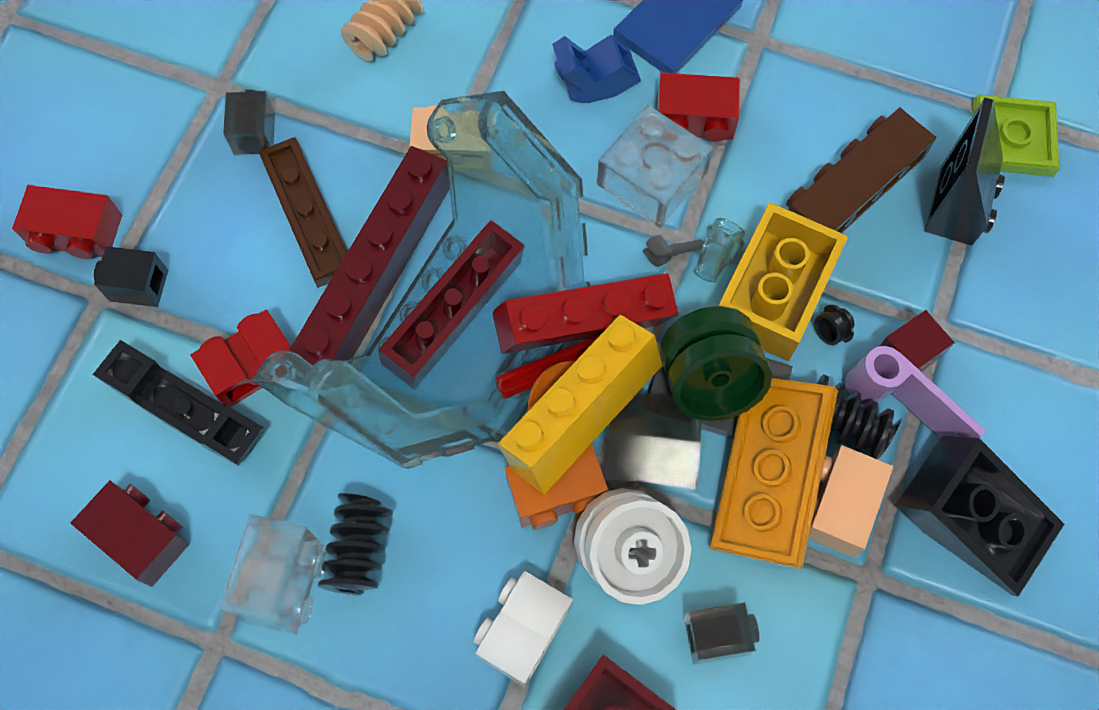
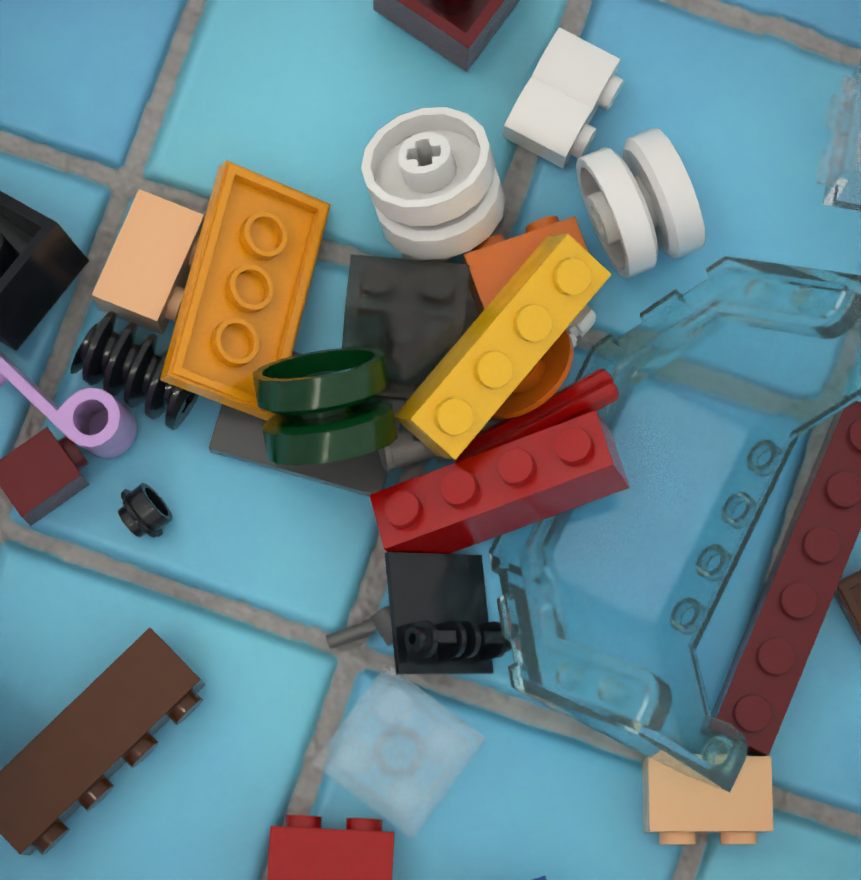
camera: 175 degrees right, 10 degrees up
(355, 545) = (775, 188): black piece -> none
(451, 304) = (685, 498): dark red brick -> none
(471, 524) = (641, 202): none -> white wheel
(628, 242) = (441, 615): none -> black hinge
(719, 247) = (304, 625): clear light blue cone -> none
(721, 633) = (321, 98): clear smoke brick -> none
(783, 277) = (223, 560): yellow brick -> none

